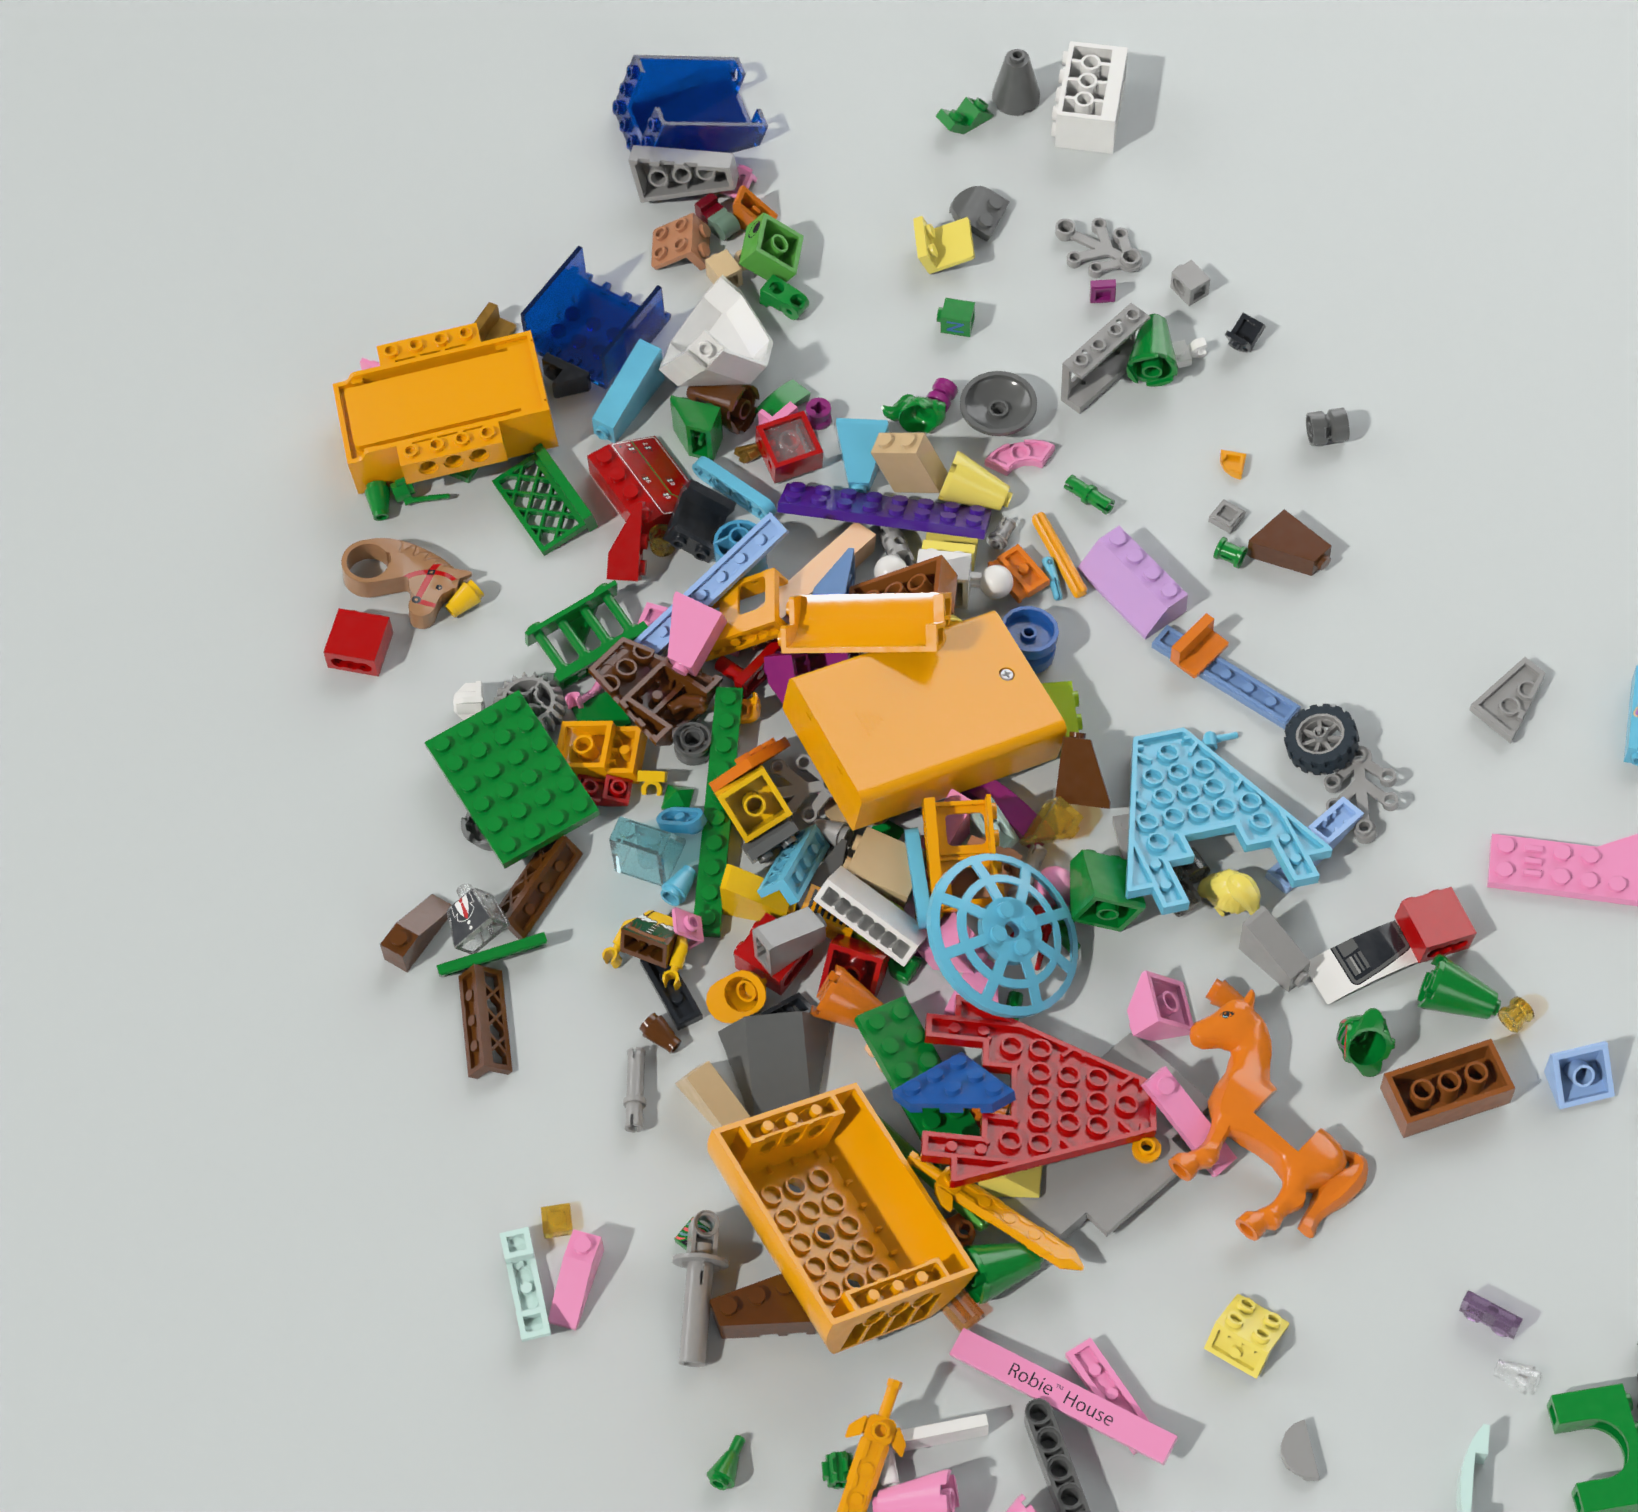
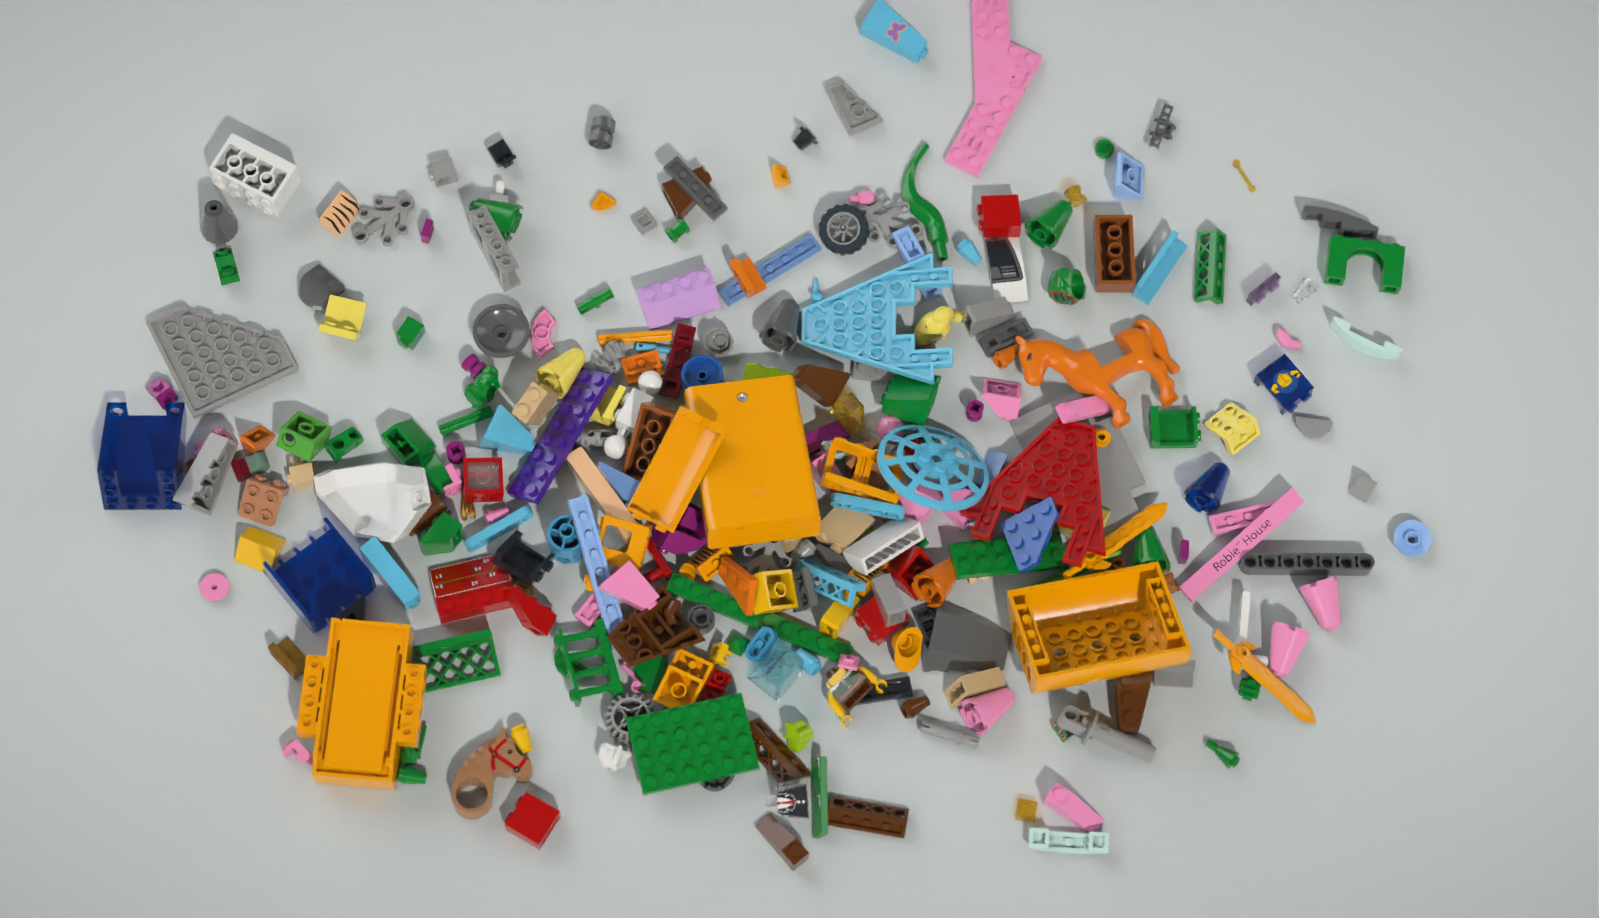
camera: 80 degrees left, 10 degrees up
(552, 235) = (214, 587): none -> bright pink piece
(571, 903) = (797, 735): none -> lime piece
(618, 261) = (257, 547): none -> yellow slope
(682, 1119) = (985, 709): none -> bright pink cone
(748, 476) = (494, 516): none -> bright pink pin
(775, 724) = (708, 561): none -> light orange panel
(776, 107) = (161, 392): none -> magenta bracket
(808, 357) = (407, 442): none -> green slope
(829, 1370) = (1175, 676): none -> light grey panel
(843, 145) = (218, 358): none -> light grey plate
(861, 406) = (465, 420): none -> green axle
(1020, 1318) = (1183, 551): none -> magenta tile
(1026, 534) = (615, 351): none -> light grey gear
(1058, 1028) = (994, 462): none -> medium blue slope
(1067, 609) = (679, 355): none -> dark red slope
(1084, 198) = (339, 214): none -> light nougat brick
(1089, 643) = (718, 342): none -> light grey hair
(1125, 980) = (977, 406): none -> magenta bush
(1135, 1324) = (1208, 489): none -> clear blue cone
(1146, 708) = (782, 327): none -> dark grey cone
(1210, 1250) = (1174, 428): none -> green panel
(1268, 998) = (1005, 336): none -> dark grey plate
(1293, 545) = (695, 188): none -> dark grey plate
(1346, 1387) = (1285, 383): none -> clear blue panel
(1364, 904) = (969, 251): none -> medium azure cone
(1368, 646) = (780, 176): none -> light orange slope
(1383, 751) = (863, 197): none -> bright pink cylinder
(1401, 830) = (923, 210): none -> green animal
(1422, 1371) = (1285, 340): none -> bright pink arm
(1437, 657) = (805, 138): none -> black brick
(1457, 1160) = (1159, 269): none -> medium azure fence
(1494, 1234) = (1214, 264): none -> green fence
(1614, 1034) = (1104, 149): none -> green tile

